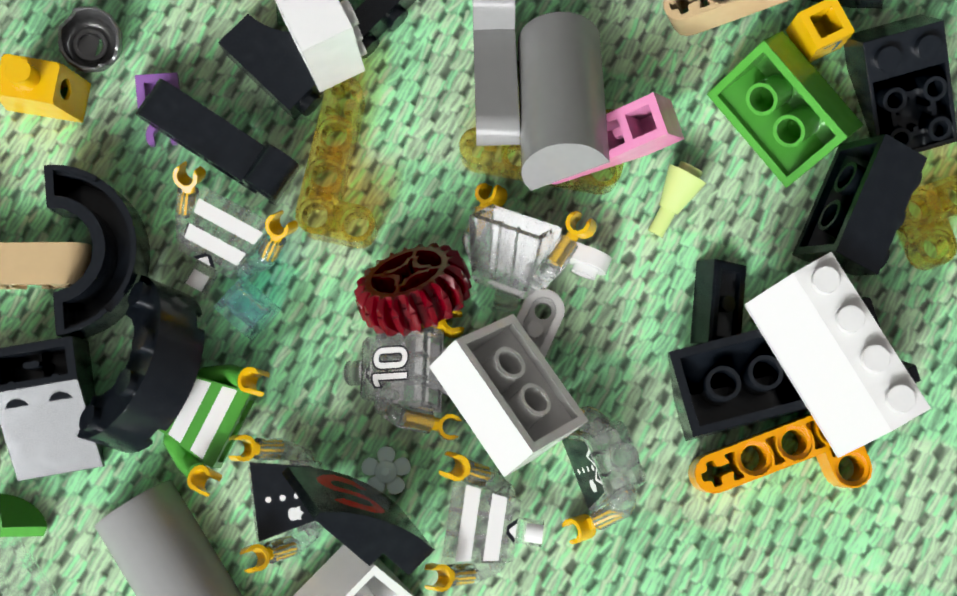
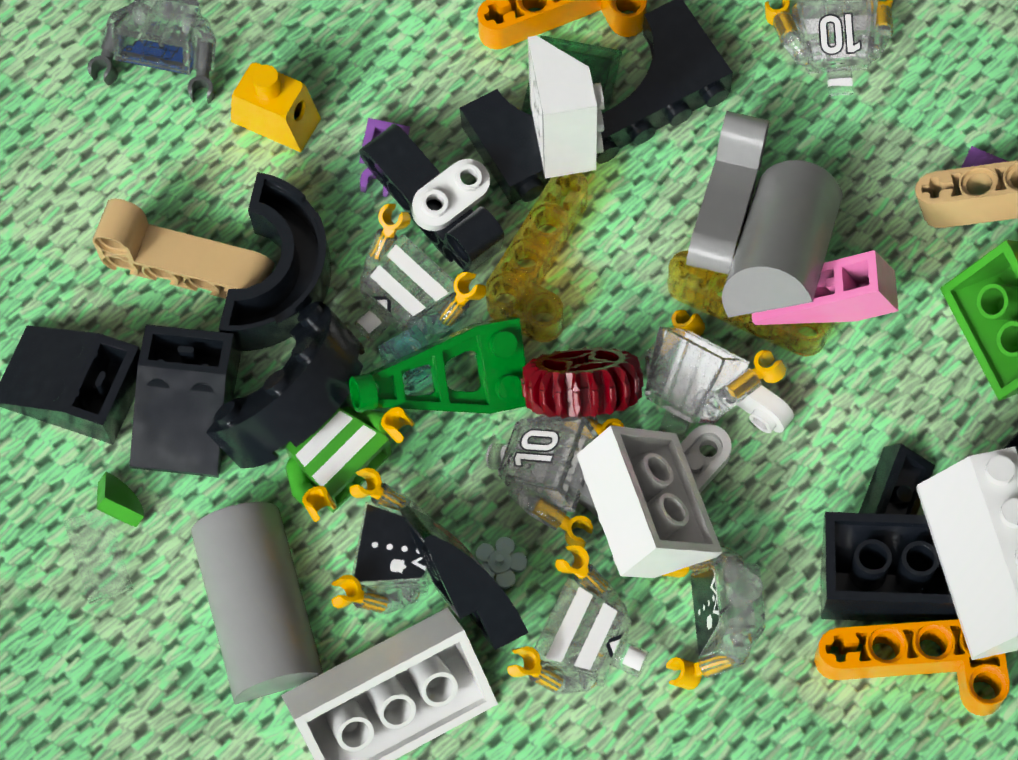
camera: 20 degrees right, 15 degrees down
(81, 35) = (329, 68): flat silver hair -> none
(237, 136) = (452, 193): none -> white plate
(332, 290) = (499, 363): none -> green plate
(679, 189) = (885, 368): yellowish green cone -> none

